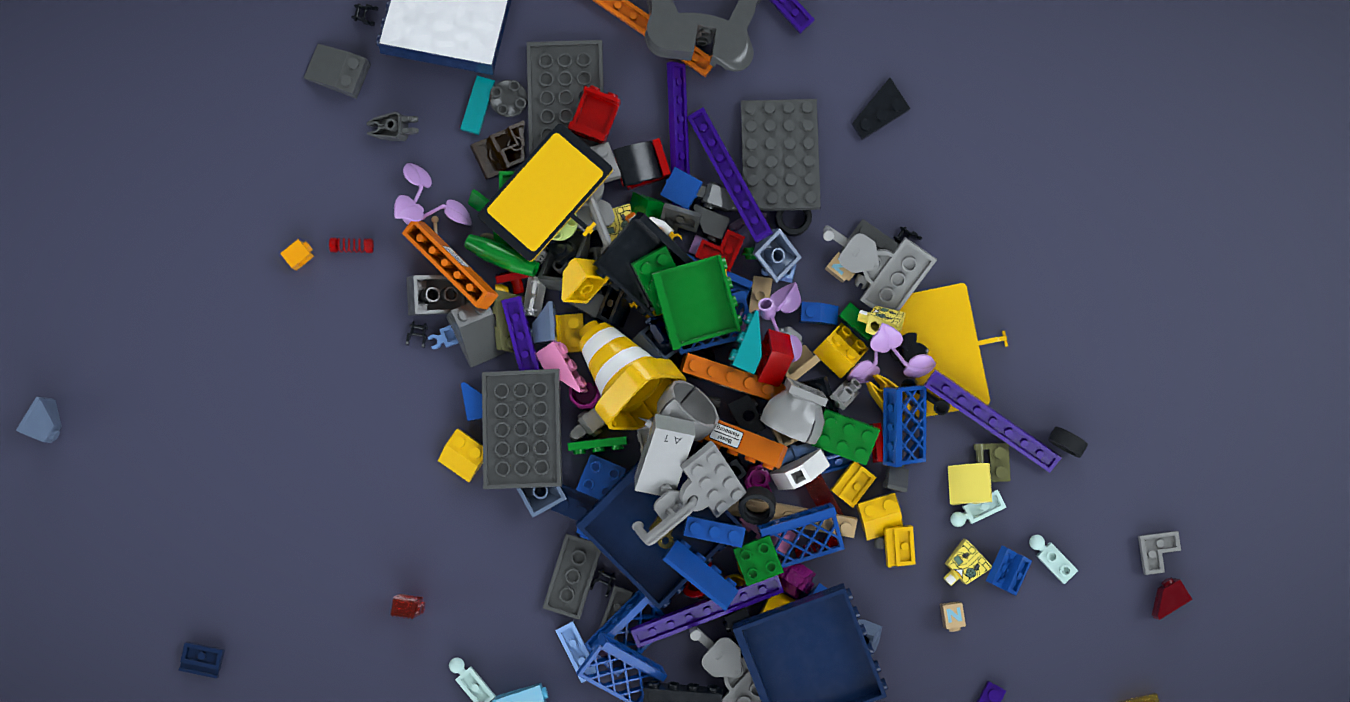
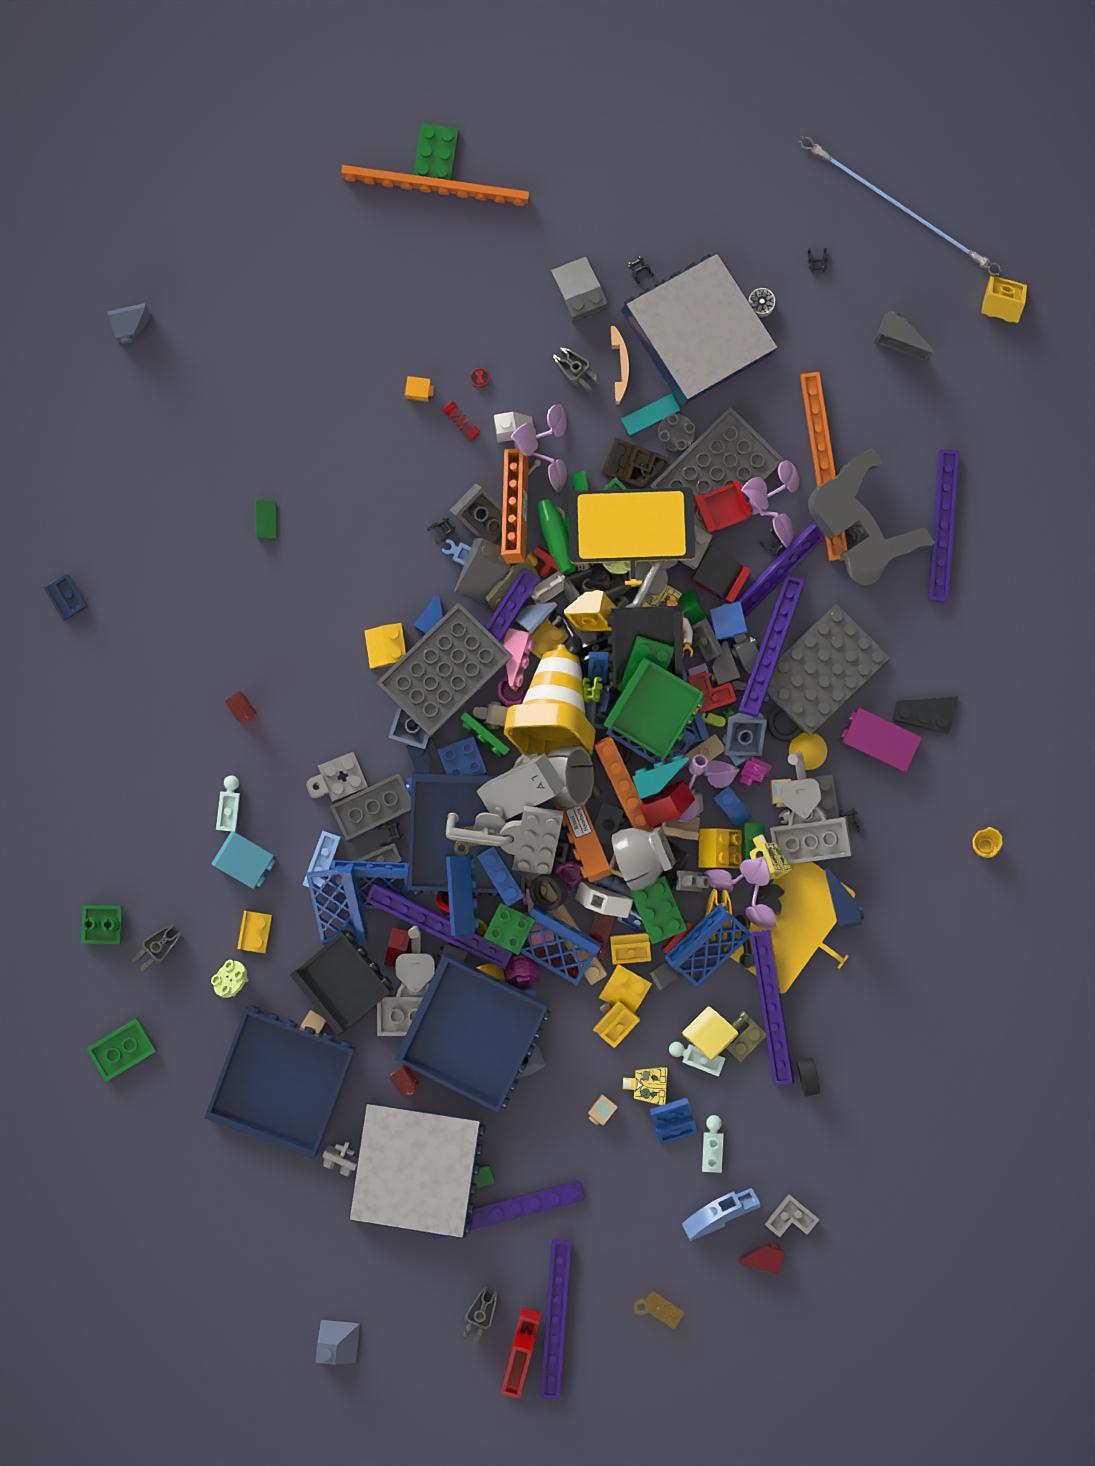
camera: 45 degrees right, 0 degrees up
(138, 81) = (435, 151): none -> green plate
(159, 102) = (429, 184): none -> orange plate
(286, 457) = (265, 519): none -> green slope
(332, 202) = (479, 377): none -> tile
(384, 213) = (508, 423): none -> white slope
(403, 79) = (618, 343): none -> light nougat slope
(523, 591) = (328, 780): none -> light grey plate
(593, 315) = (574, 645): none -> black bar
(607, 77) = (756, 491): none -> lavender plant
(627, 315) = (598, 666): none -> blue hinge
(641, 332) = (595, 690): none -> lime piece
(655, 99) = (776, 552): none -> black piece
(692, 654) = (397, 945): none -> dark red slope
(743, 267) = (713, 719): none -> lime piece
(808, 273) = (754, 772): none -> magenta hair
(831, 215) = (812, 747): none -> yellow dish
(869, 160) = (880, 739): none -> magenta panel
(970, 299) = (845, 906): none -> dark blue slope
(1015, 154) = (987, 842): none -> yellow hair
(1107, 599) = (718, 1212): none -> medium blue slope

